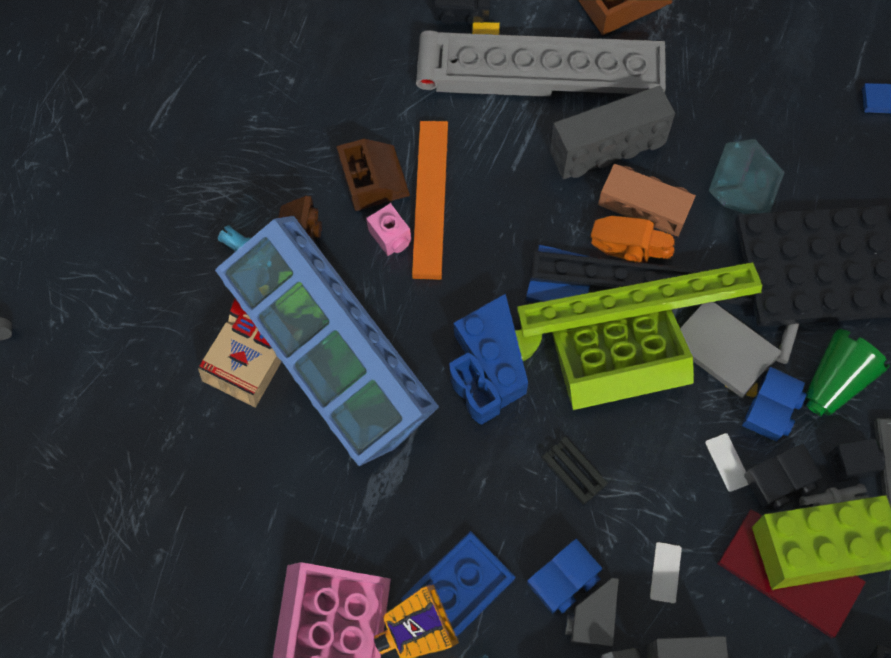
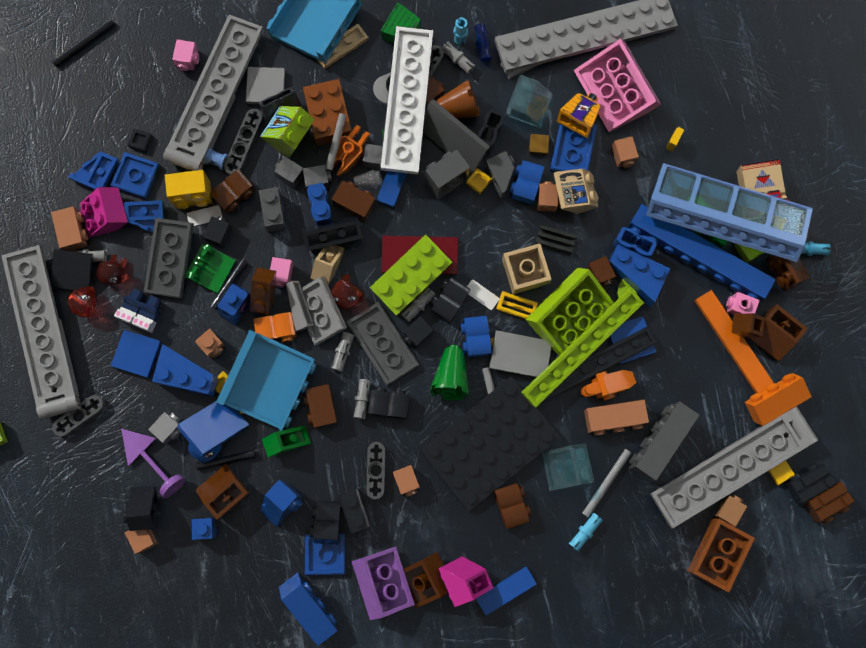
camera: 140 degrees right, 10 degrees up
(307, 501) = (674, 139): none -> yellow tile
(378, 296) = (704, 255): none -> blue brick
(392, 528) = (625, 152): none -> nougat brick
(406, 195) = (748, 325): none -> reddish brown brick
(431, 102) = (778, 399): none -> orange brick
(507, 627) = (539, 144): none -> pearl gold tile
(508, 511) = (576, 190): none -> tan slope
(544, 383) = (602, 271): none -> reddish brown brick
(549, 535) = (547, 197): none -> nougat brick
(579, 23) = (730, 510): none -> medium nougat brick
(634, 629) = (478, 181): none -> yellow tile
(650, 448) = (526, 268): none -> tan brick
(665, 572) = (479, 219): white sticker -> none
(680, 422) = (516, 298): none -> yellow tile
(705, 139) = (606, 483): none -> light grey bar
(768, 103) = (585, 532): none -> medium azure pin
(847, 178) = (512, 505): none -> reddish brown brick

